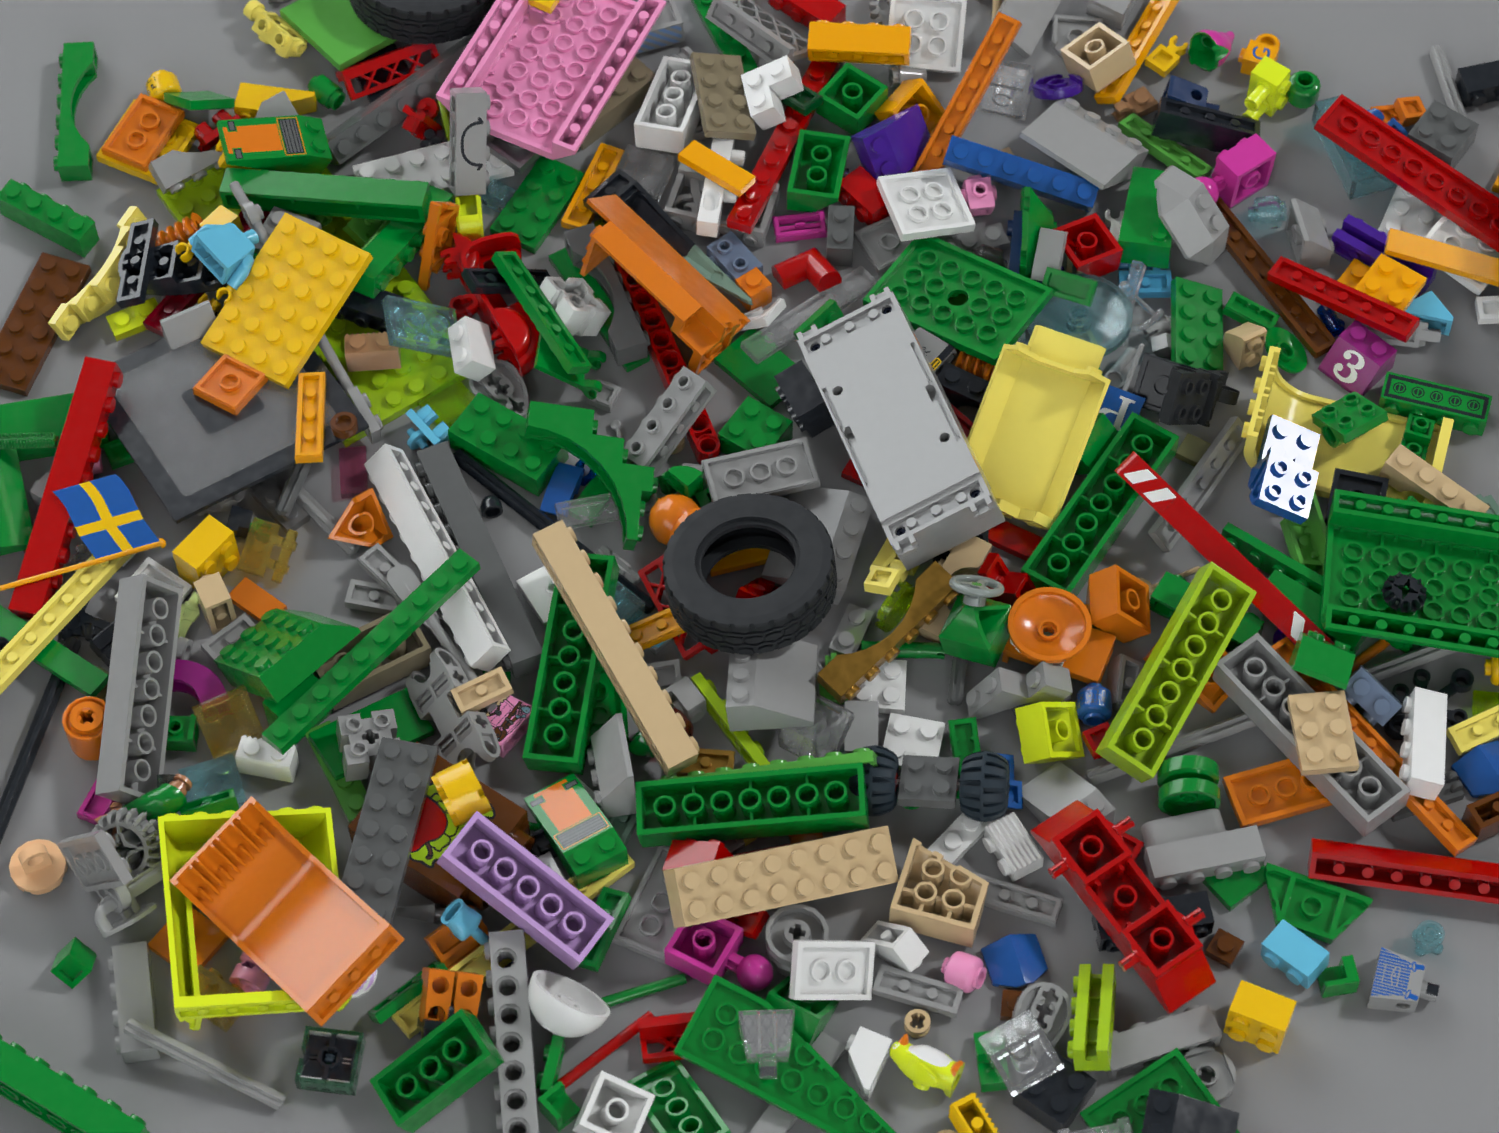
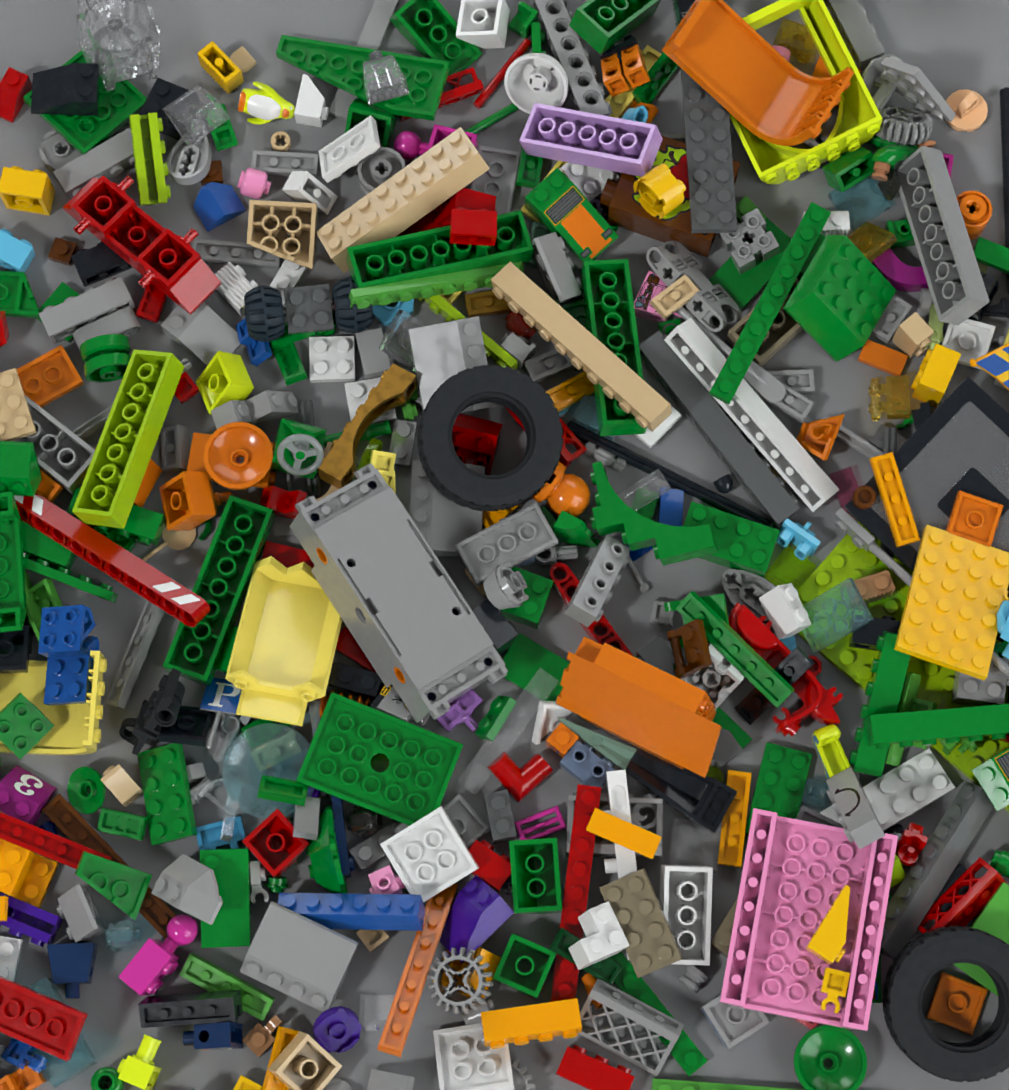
camera: 165 degrees right, 15 degrees up
(73, 963) = (909, 43): green panel -> none
(438, 237) = (851, 713): orange wing -> none
(535, 35) = (831, 933): none -> yellow slope
(583, 322) = (695, 648): none -> reddish brown plate
(703, 808) = (473, 227): none -> red brick
(775, 417) = (505, 587): none -> light grey cone
(921, 87) = (451, 972): none -> light grey gear
(1094, 704) = (194, 418): blue head -> none
(1192, 449) = (151, 676): olive tile -> none
(1265, 247) = (115, 881): none -> green wing
(1328, 195) = (72, 965): none -> dark blue torso

